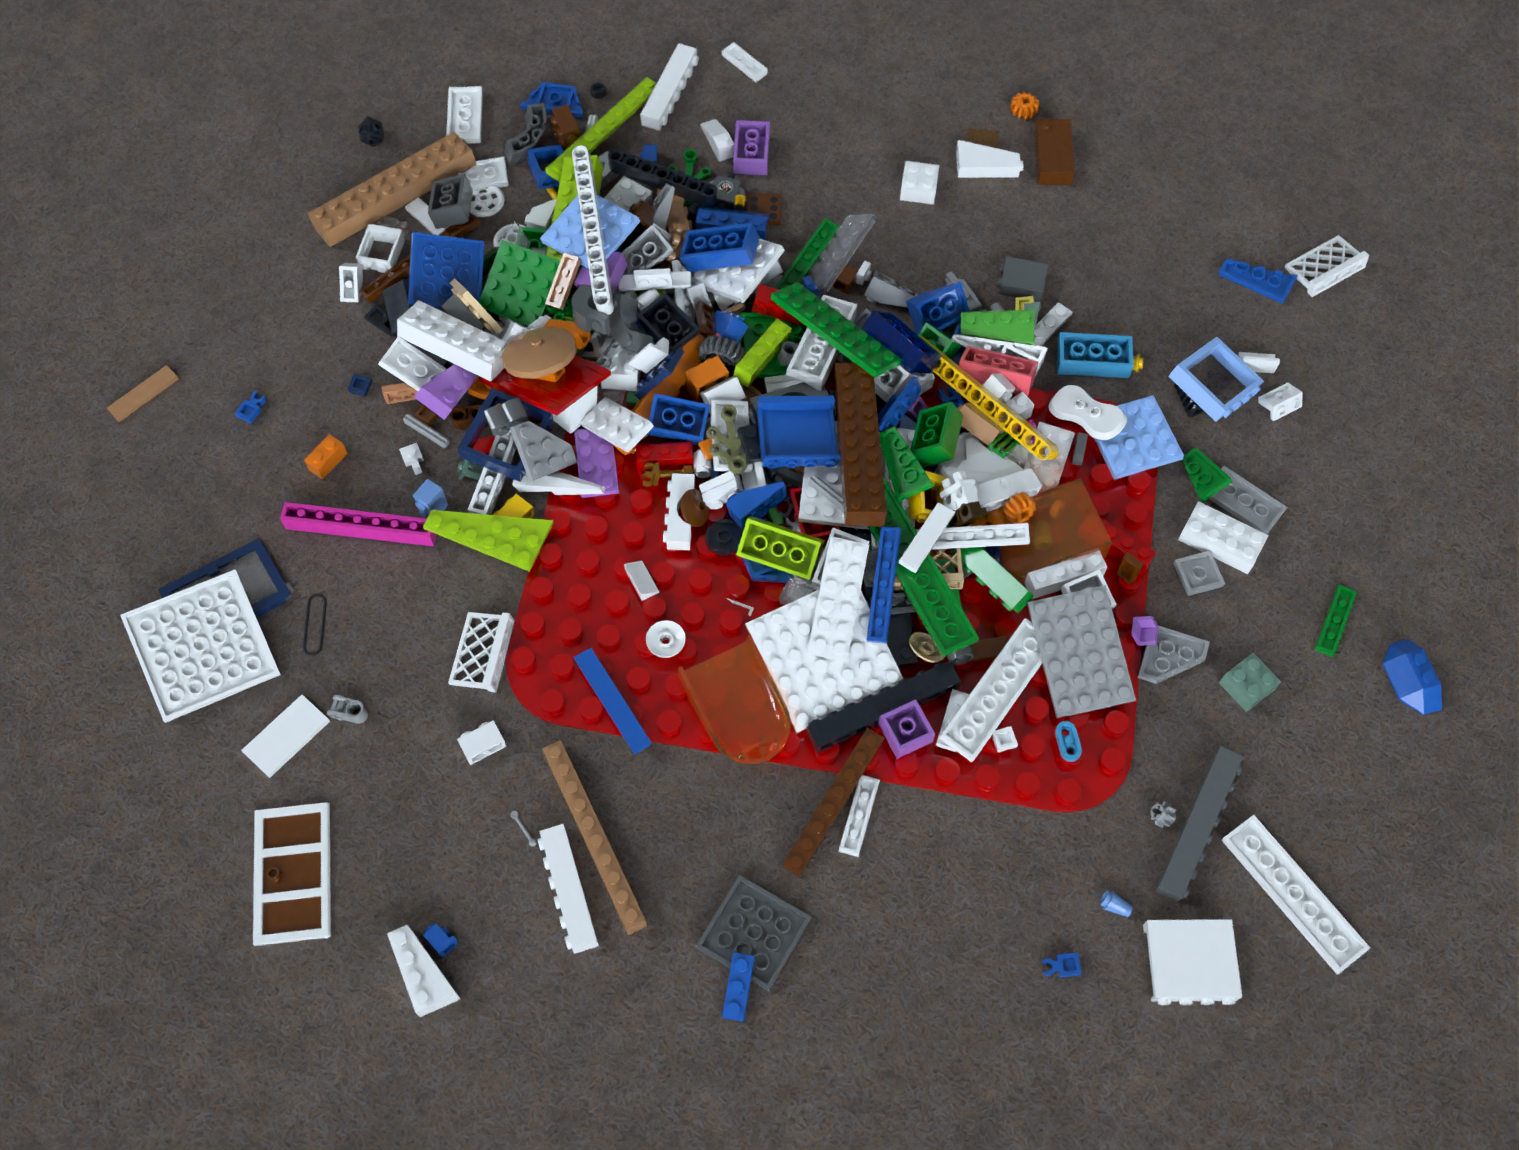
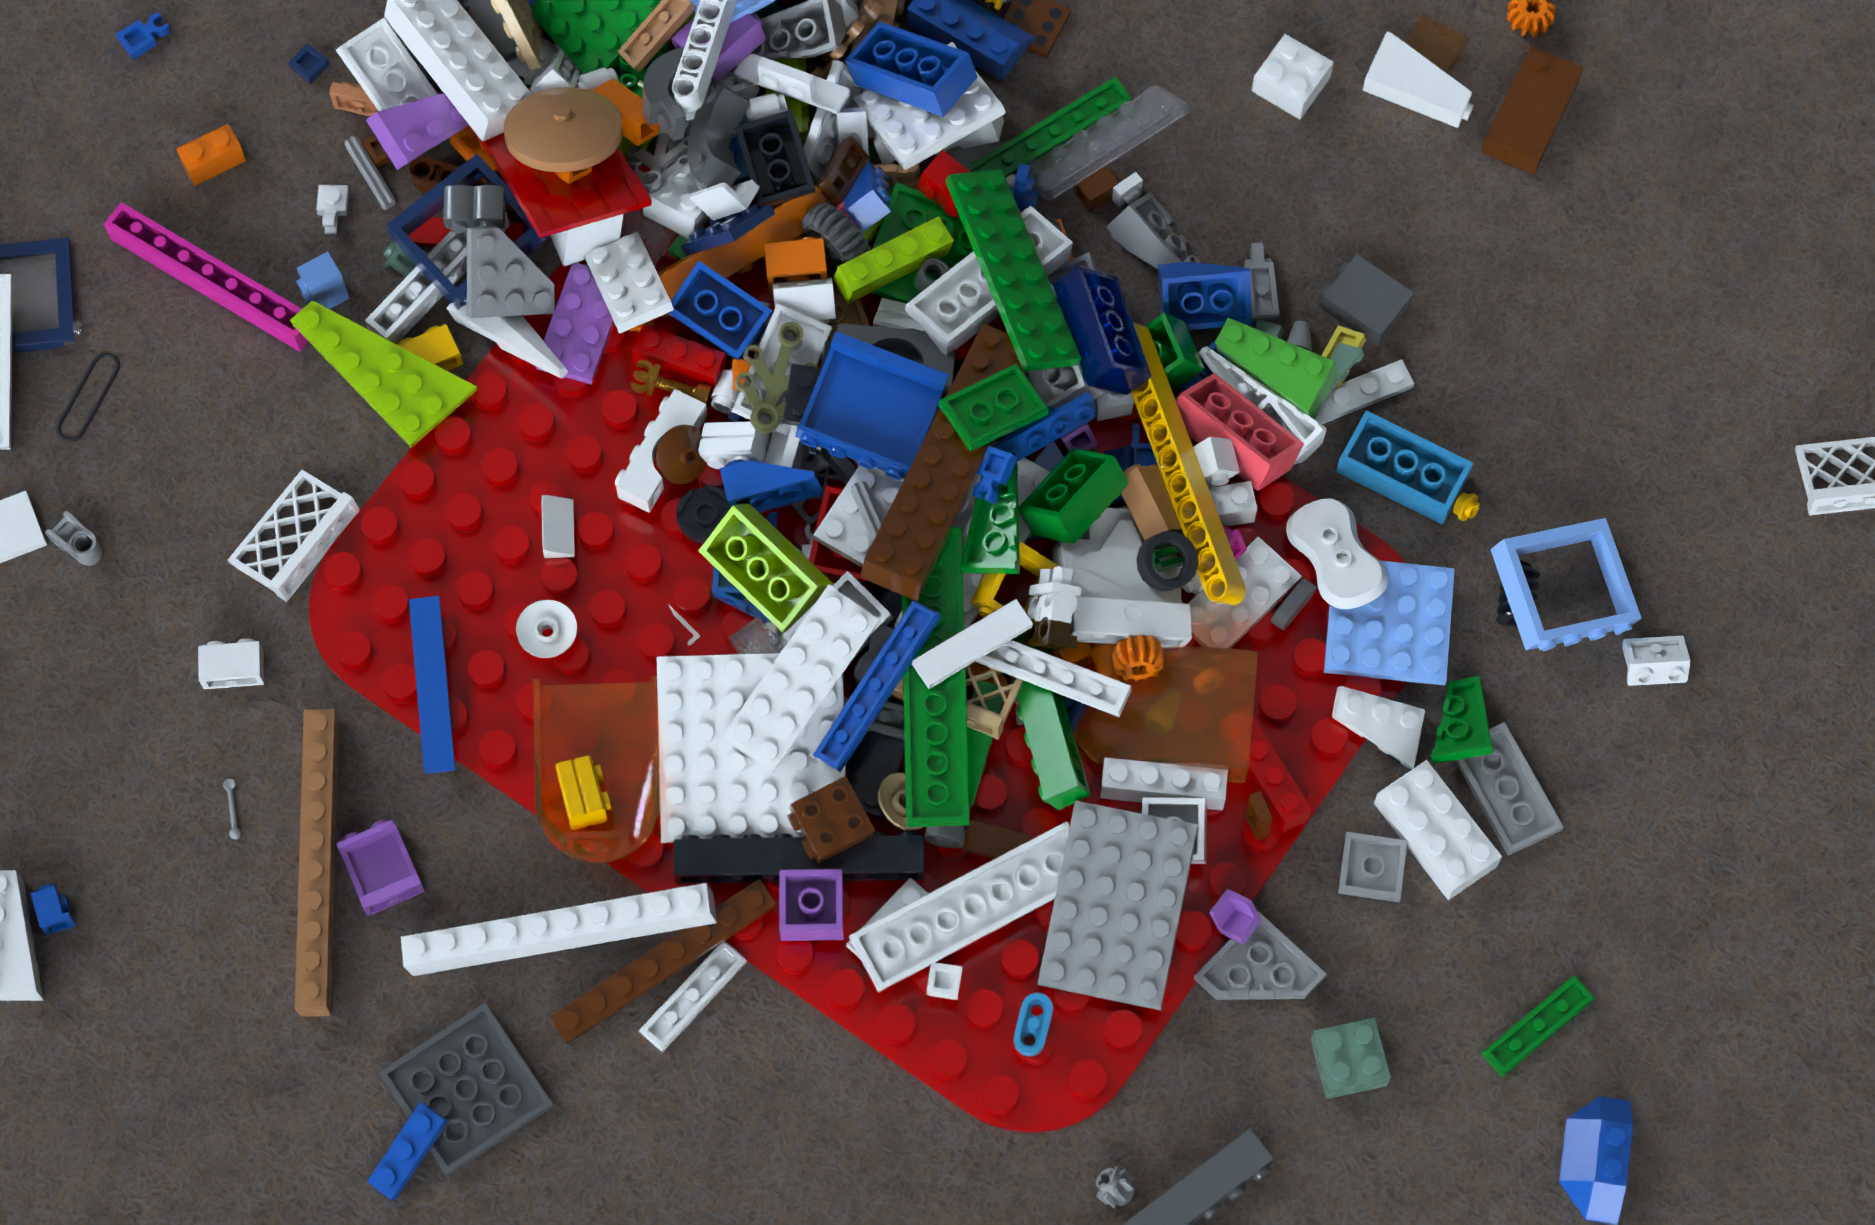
camera: 25 degrees right, 5 degrees up
(568, 889) = (249, 917): white brick -> none
(632, 822) = (379, 866): none -> medium lavender panel
(737, 723) = (581, 792): none -> yellow brick
(763, 810) = (558, 929): none -> white brick
(775, 517) = (790, 520): bright green plate -> none
(870, 402) = (993, 407): none -> green tile
(889, 434) = (994, 469): none -> blue plate
(895, 673) = (830, 820): none -> reddish brown brick
(1018, 443) = (1186, 550): none -> black tyre
(1160, 491) = (1384, 722): none -> white wing
(1260, 362) = (1656, 583): white panel -> none
(1265, 282) = (1742, 457): blue wing -> none

